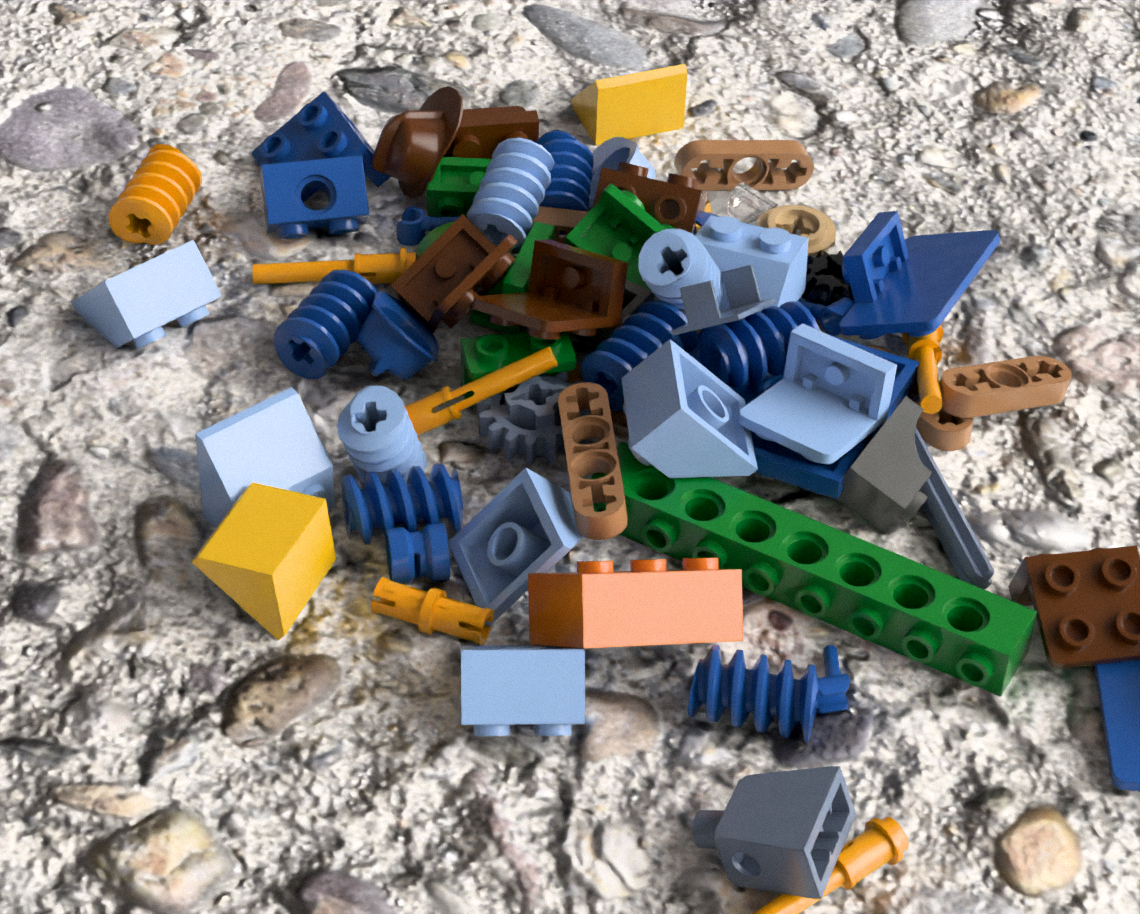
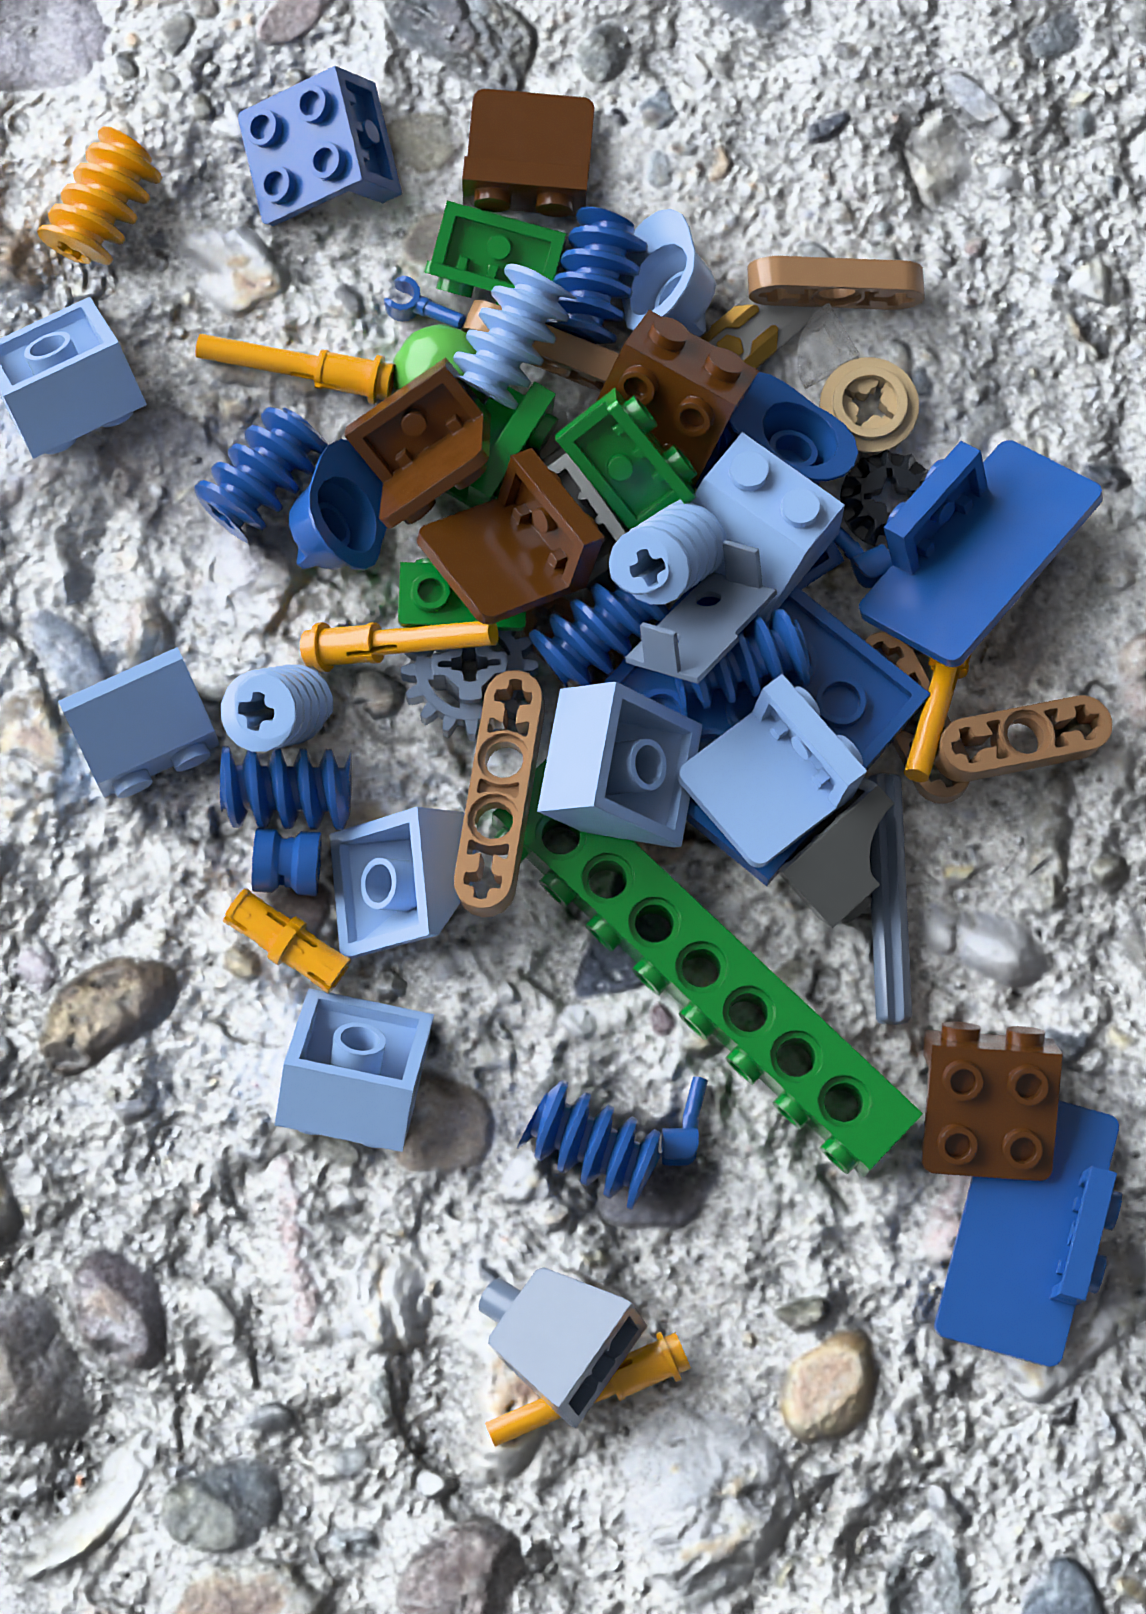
camera: 10 degrees right, 35 degrees up
(270, 553) = (118, 845): yellow slope -> none
(338, 178) = (316, 223): blue brick -> none
(418, 140) = (435, 182): reddish brown piece -> none
(633, 104) = (730, 122): yellow slope -> none
(636, 605) = (492, 1015): wedge -> none

